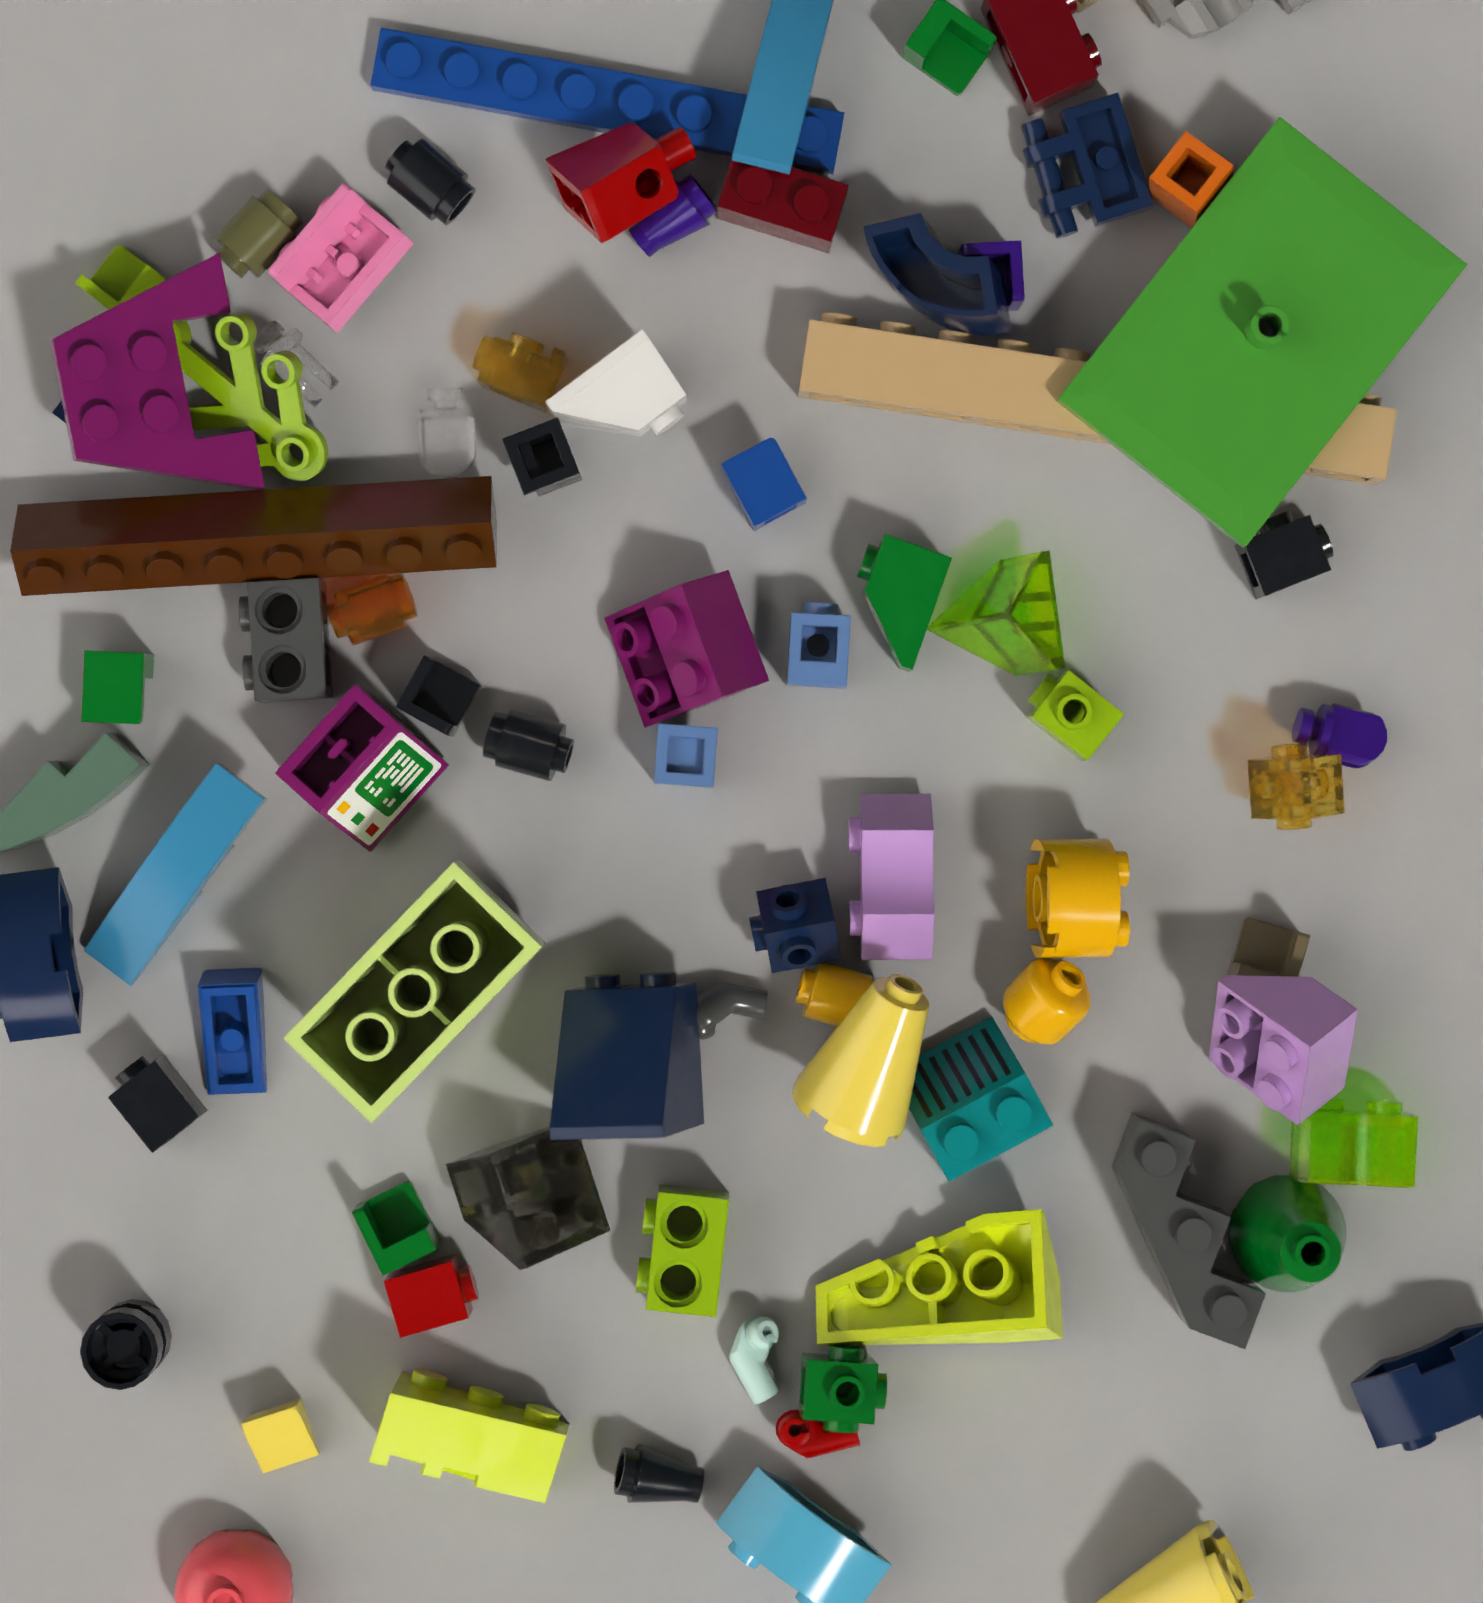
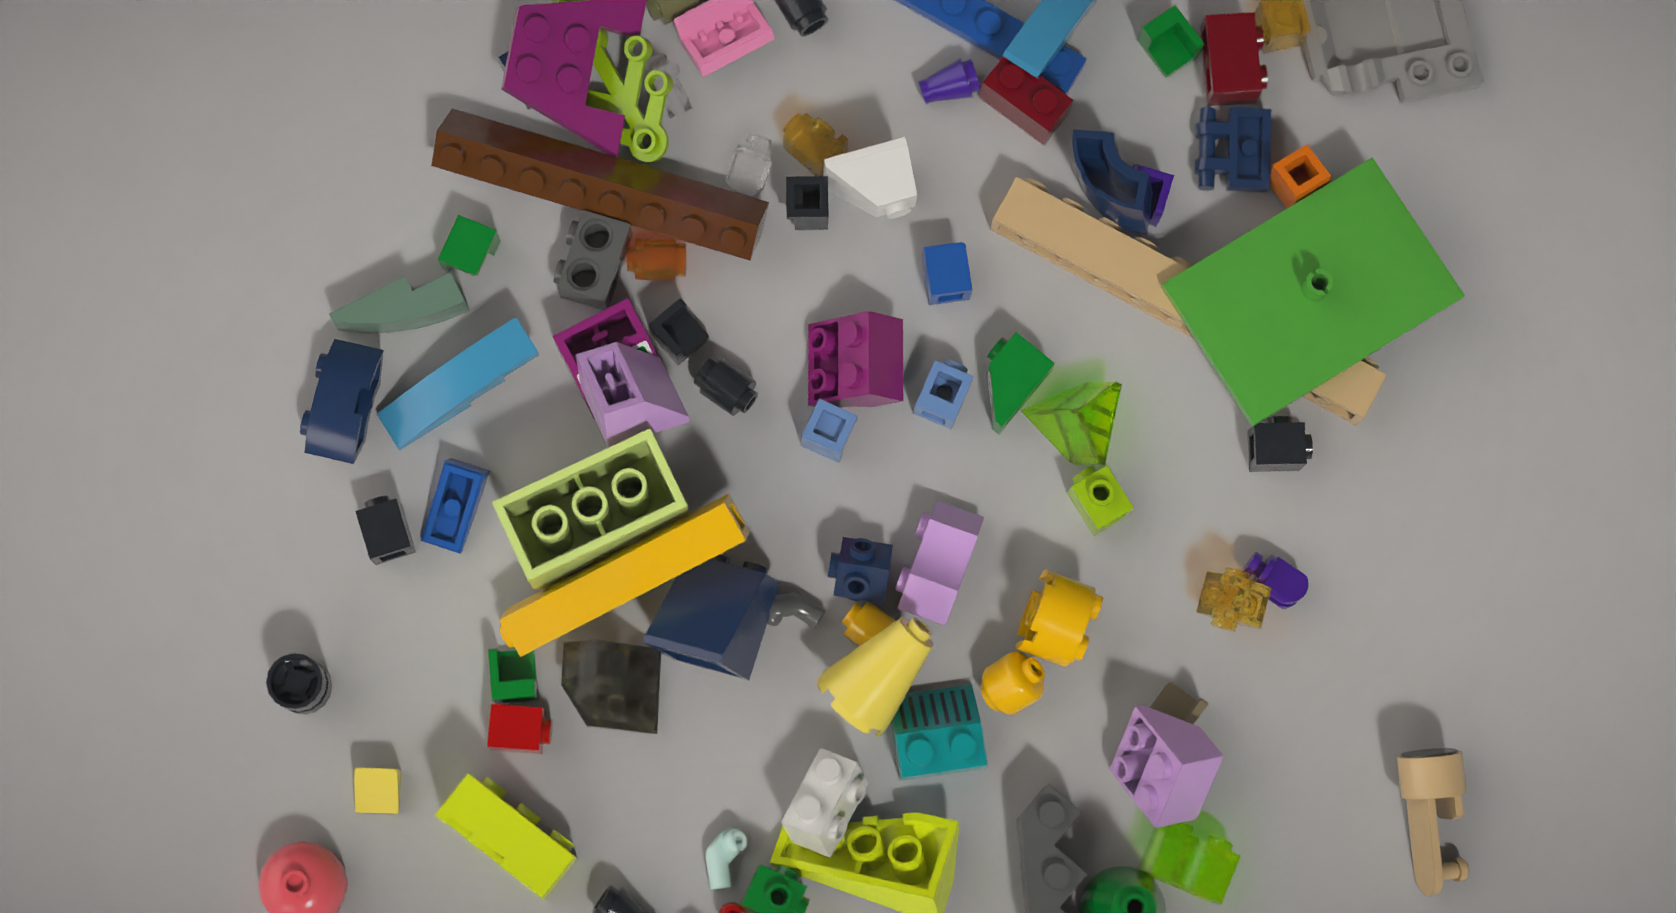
camera: 15 degrees right, 10 degrees down
(407, 814) = (628, 392): none -> lavender slope
(492, 1054) = (623, 575): none -> yellow brick
(619, 177) = (925, 43): red torso -> none
(698, 1251) = (714, 767): lime brick -> none
(861, 1247) = (825, 802): none -> white brick

